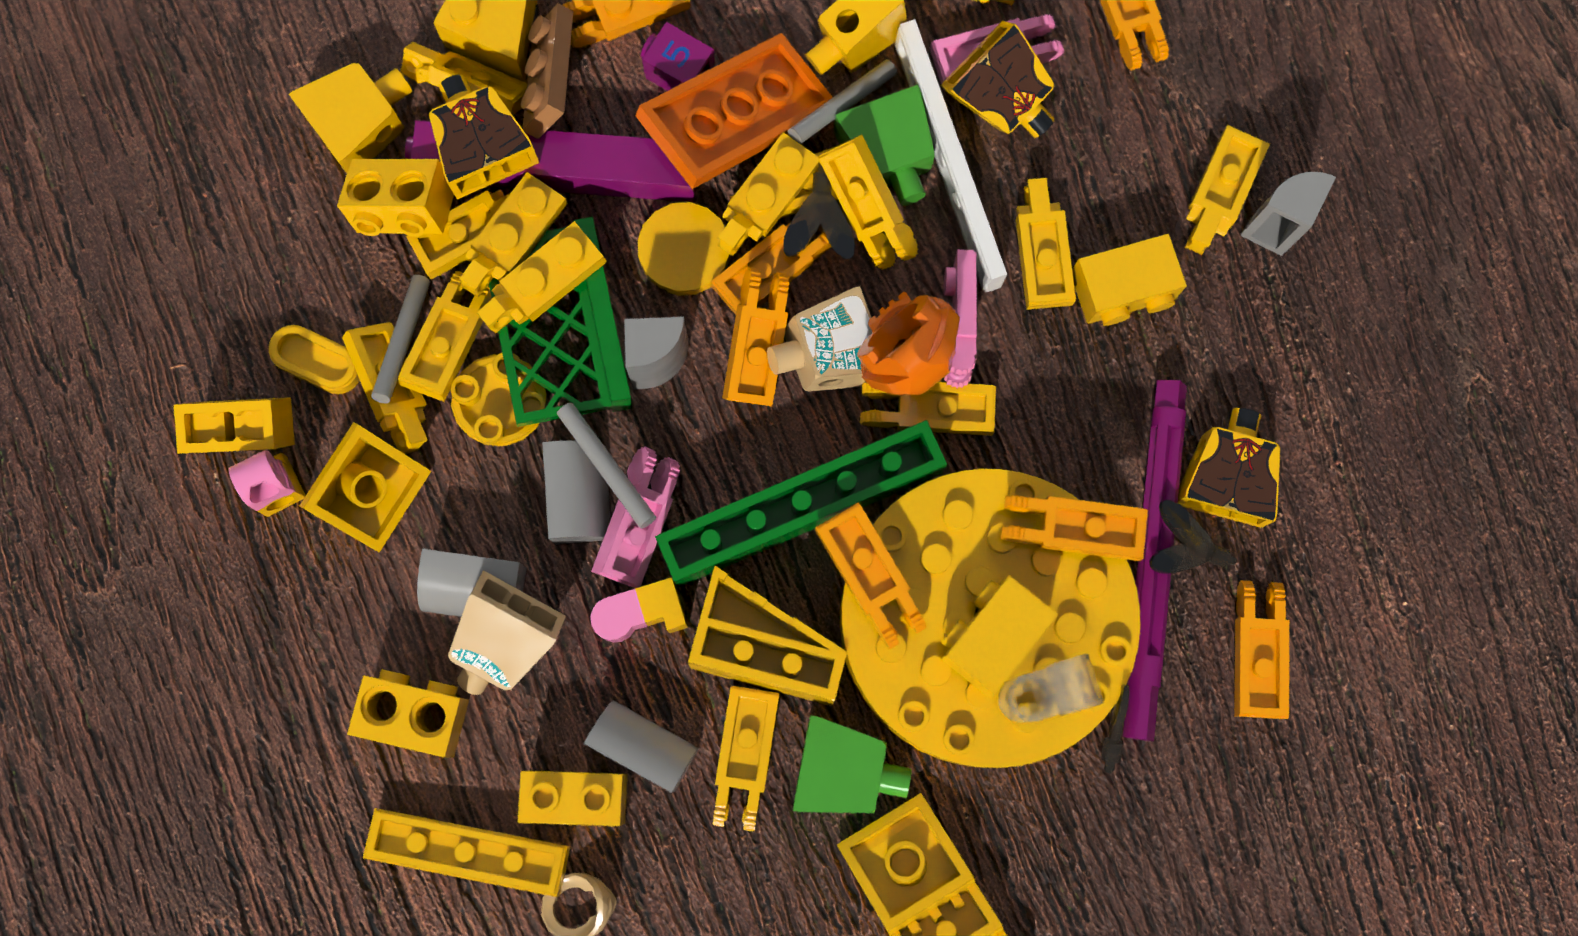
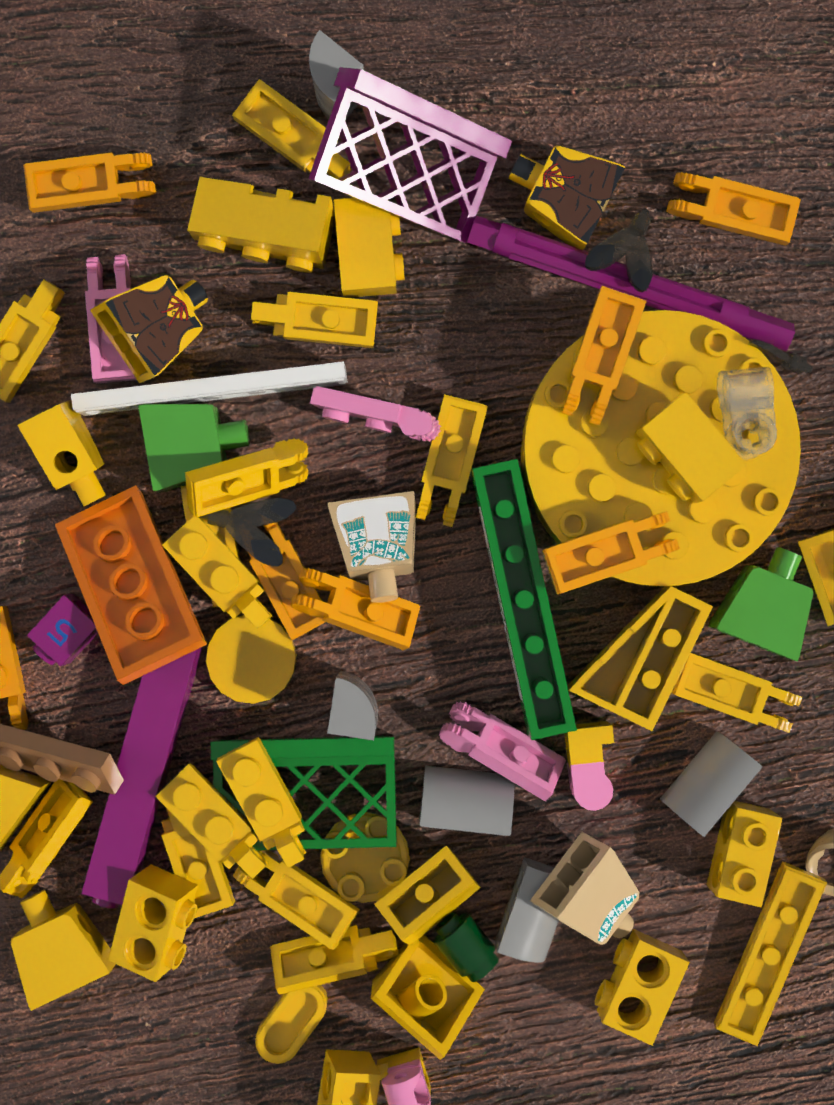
camera: 75 degrees left, 10 degrees up
(400, 339) = (291, 939): light grey bar -> none
(422, 520) = (465, 946): none -> dark green brick
(469, 466) = (427, 896): none -> yellow brick
(477, 137) = (115, 840): torso -> none
(606, 465) = (453, 771): light grey bar -> none
(842, 101) = (138, 480): light grey bar -> none
(923, 342) = (403, 456): orange helmet -> none
(1126, 173) = (262, 223): none -> yellow wedge
(1273, 301) = (413, 115): none -> fence

